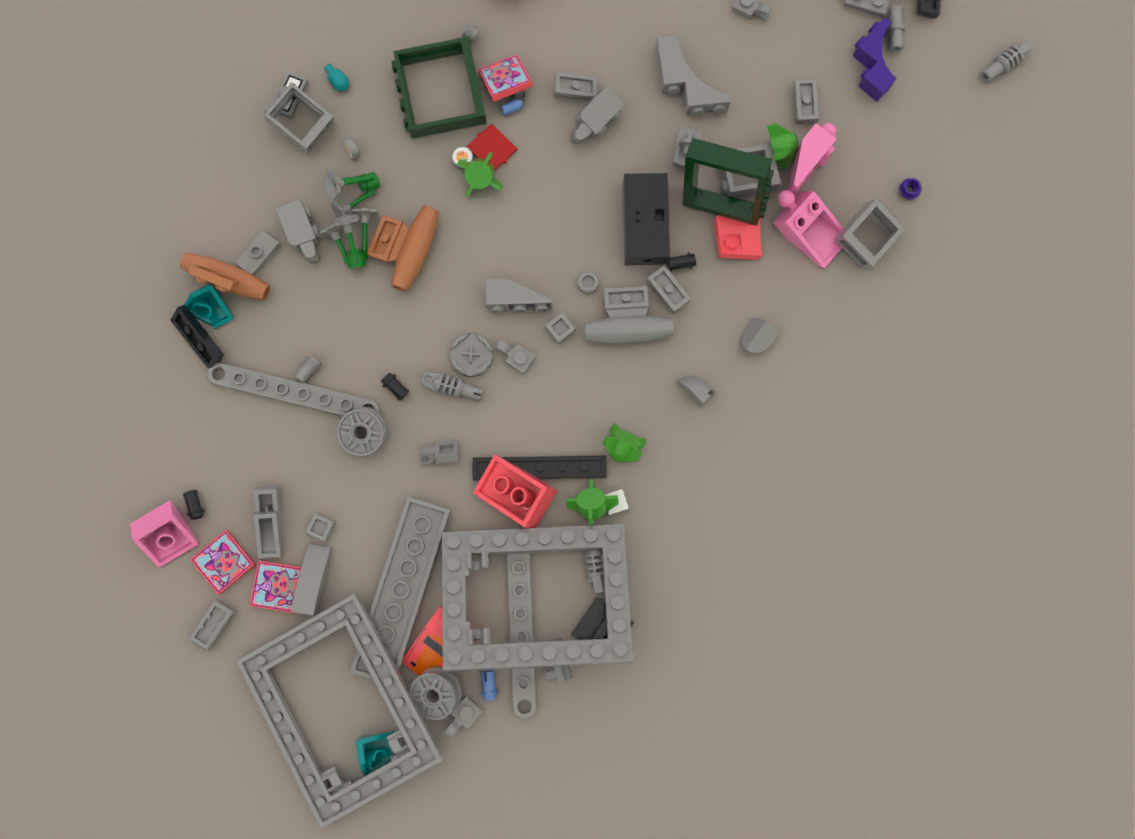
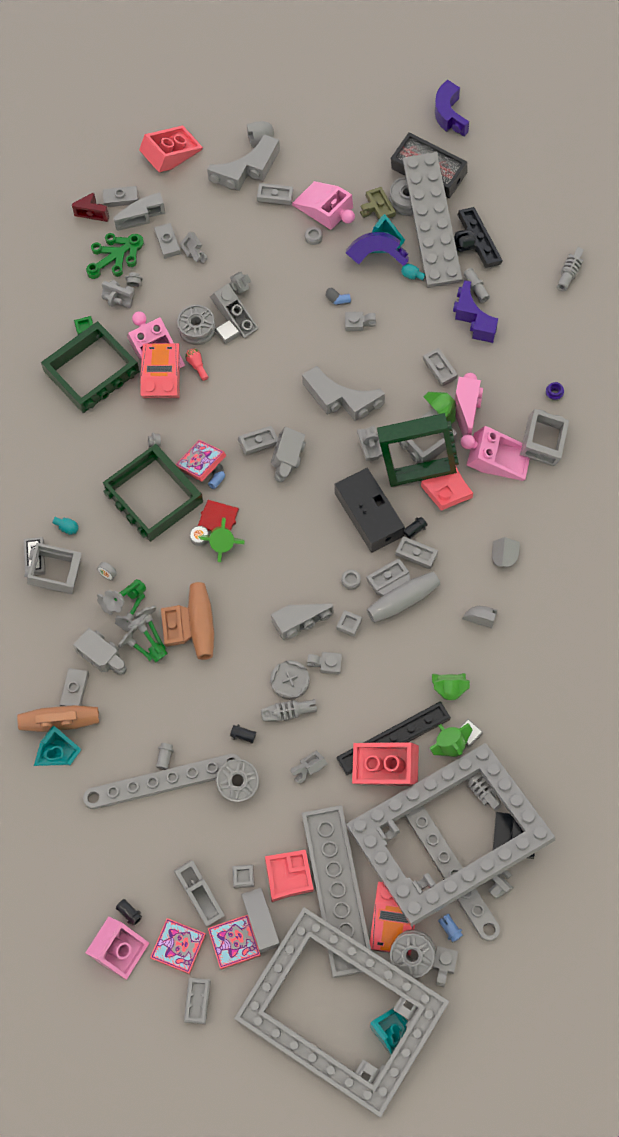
camera: 20 degrees left, 15 degrees down
(196, 336) = (60, 777): black plate -> none
(362, 550) = (288, 874): none -> coral plate

